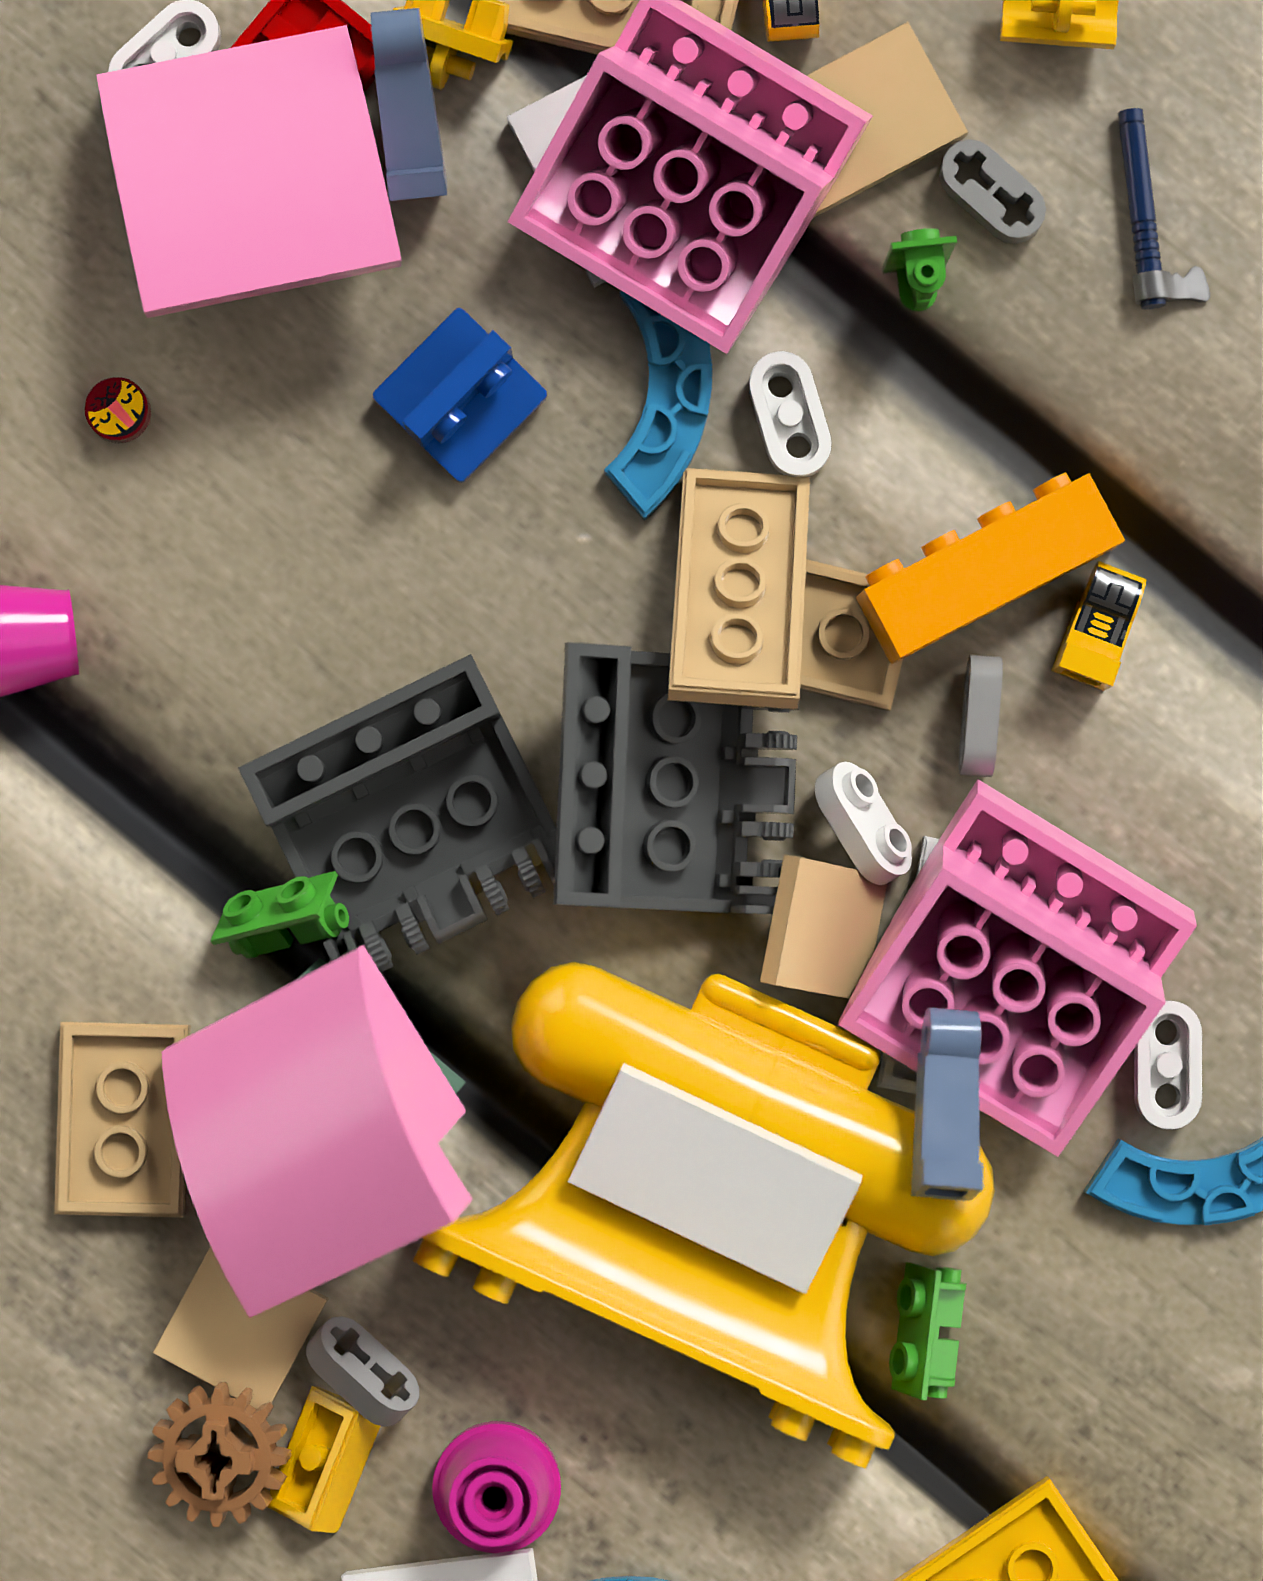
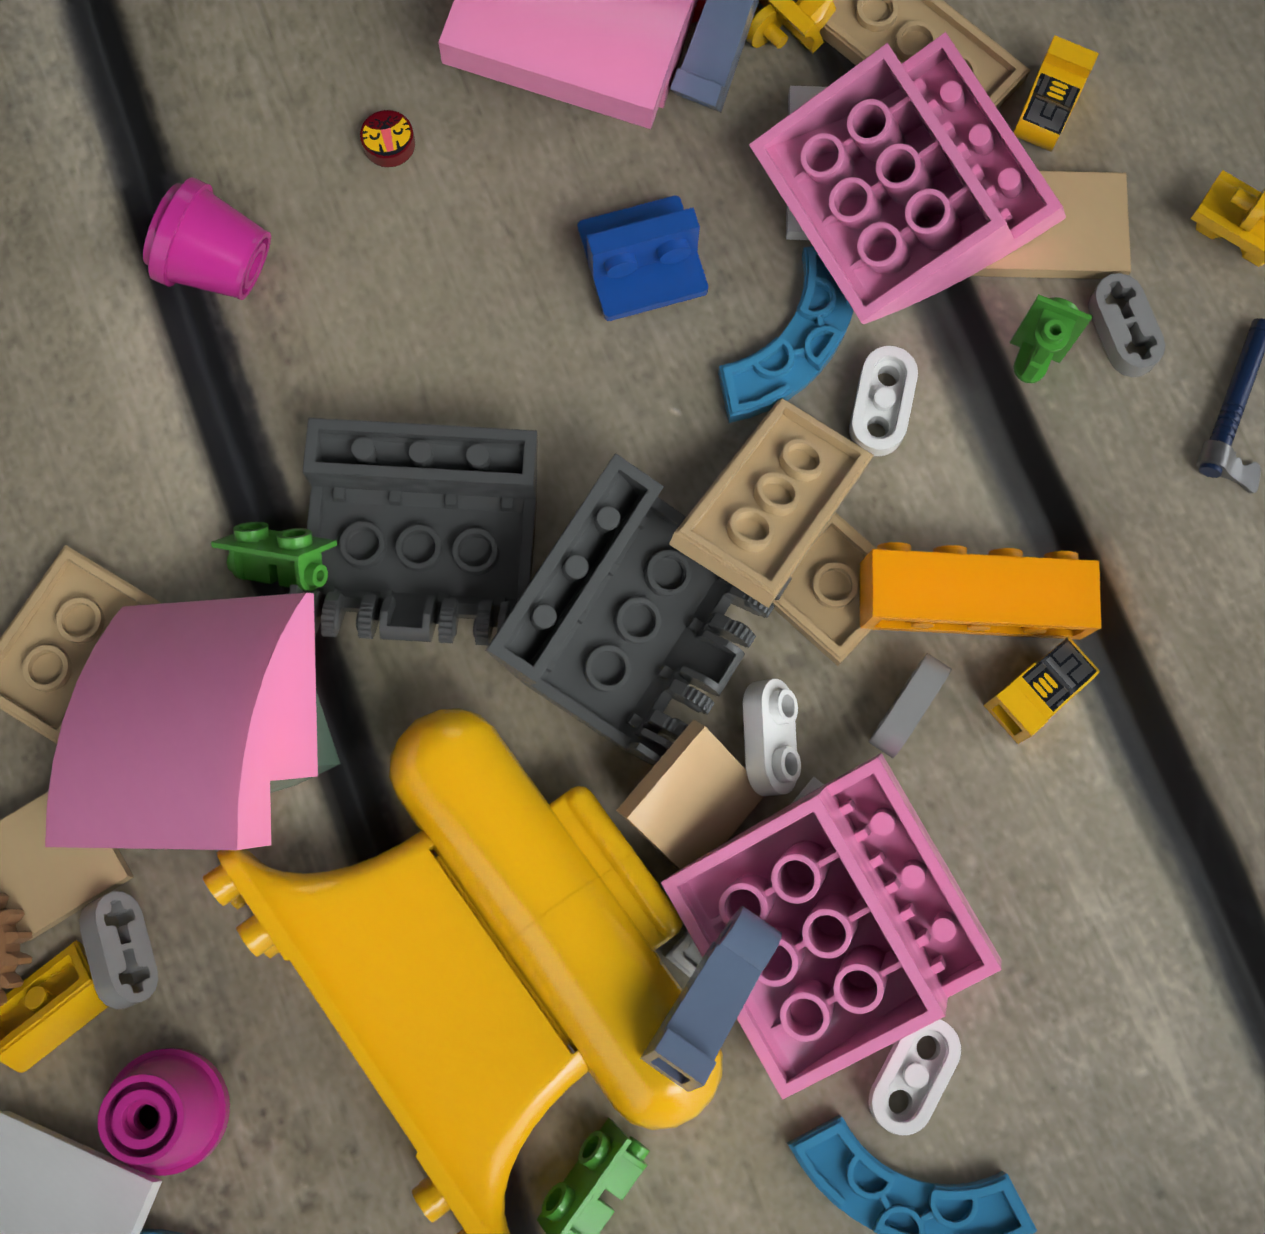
camera: 30 degrees right, 10 degrees down
(715, 1178) = (486, 949): white tile -> none

